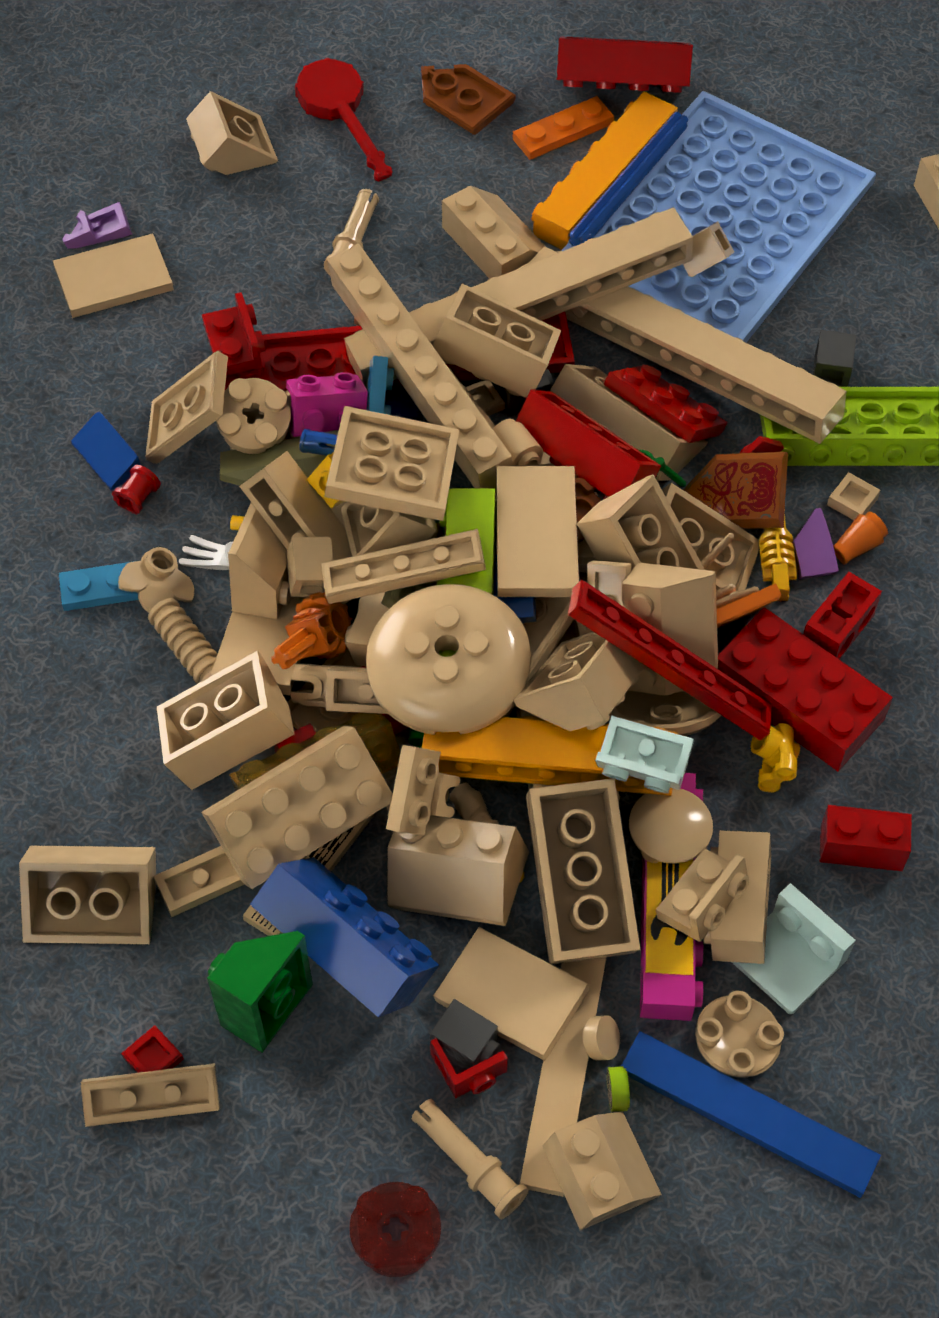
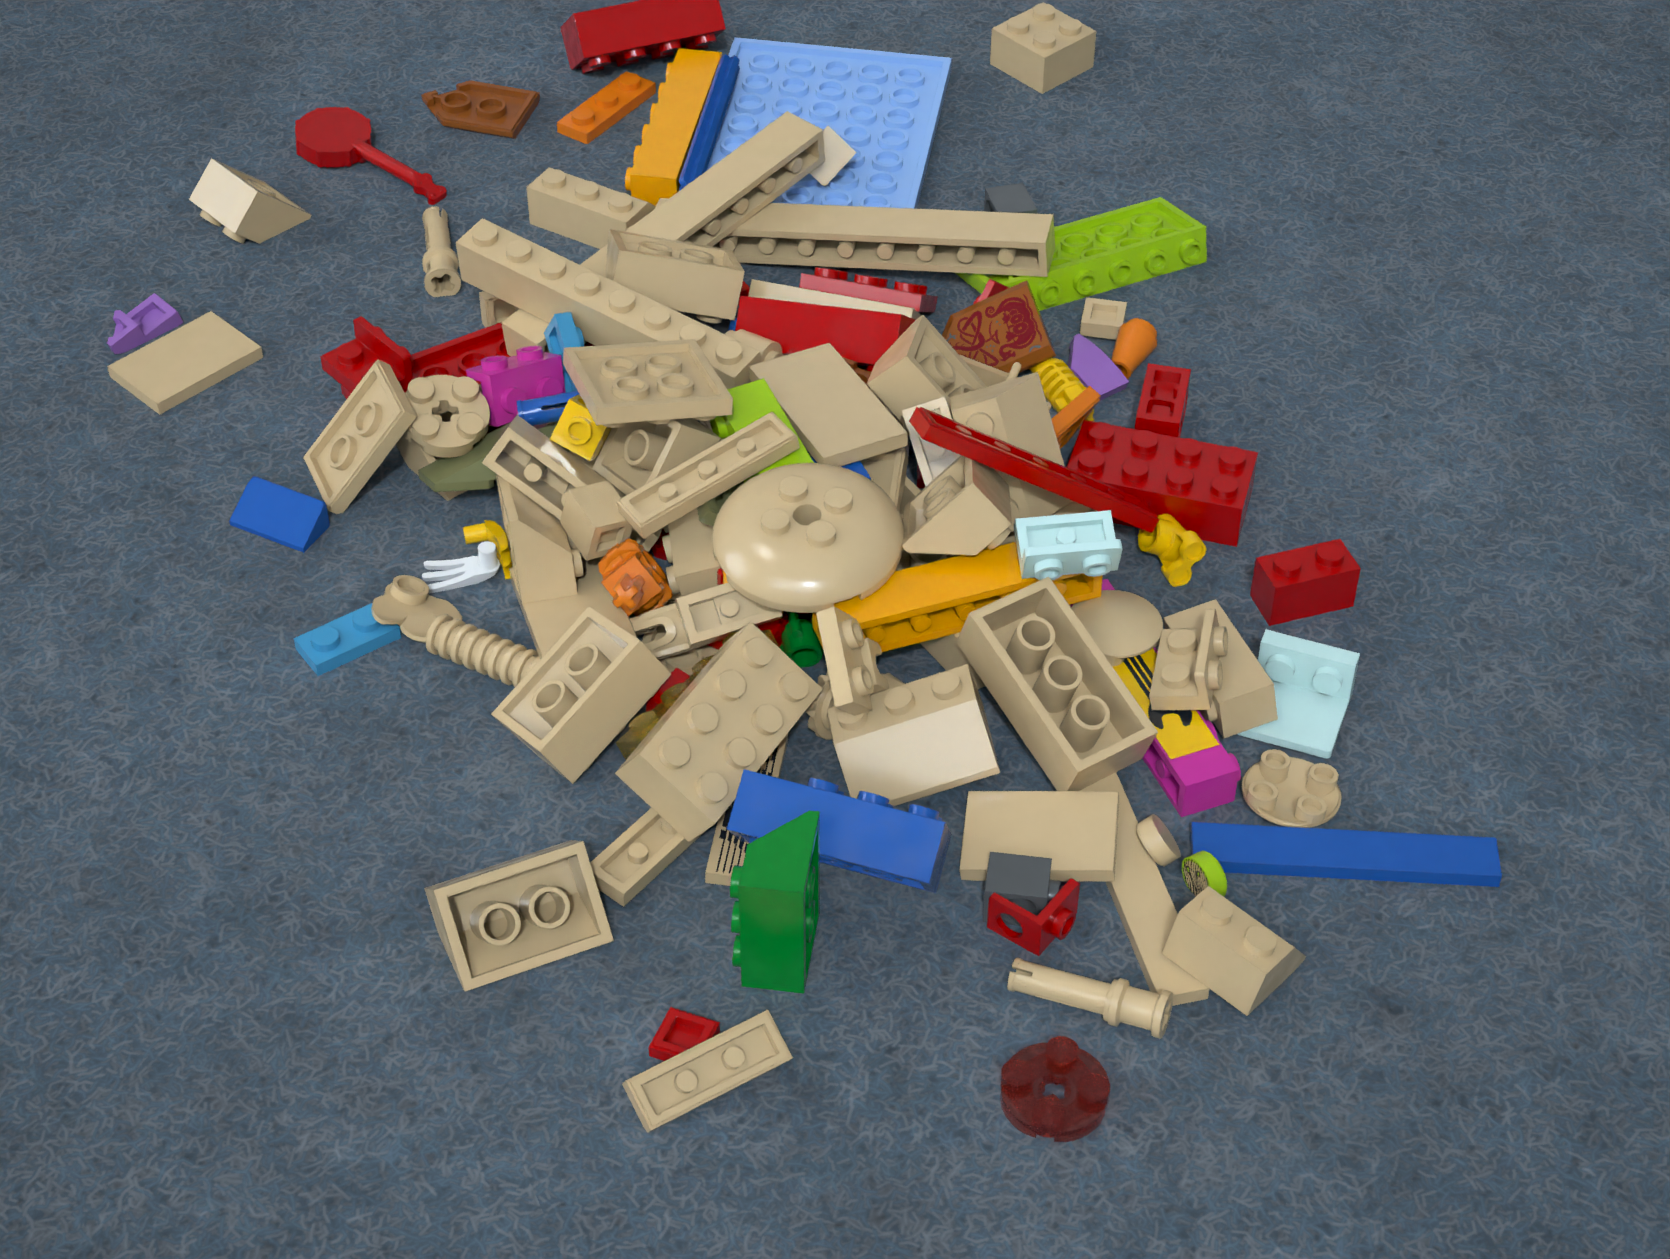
camera: 25 degrees left, 15 degrees down
(136, 489) = (339, 530): red bush -> none

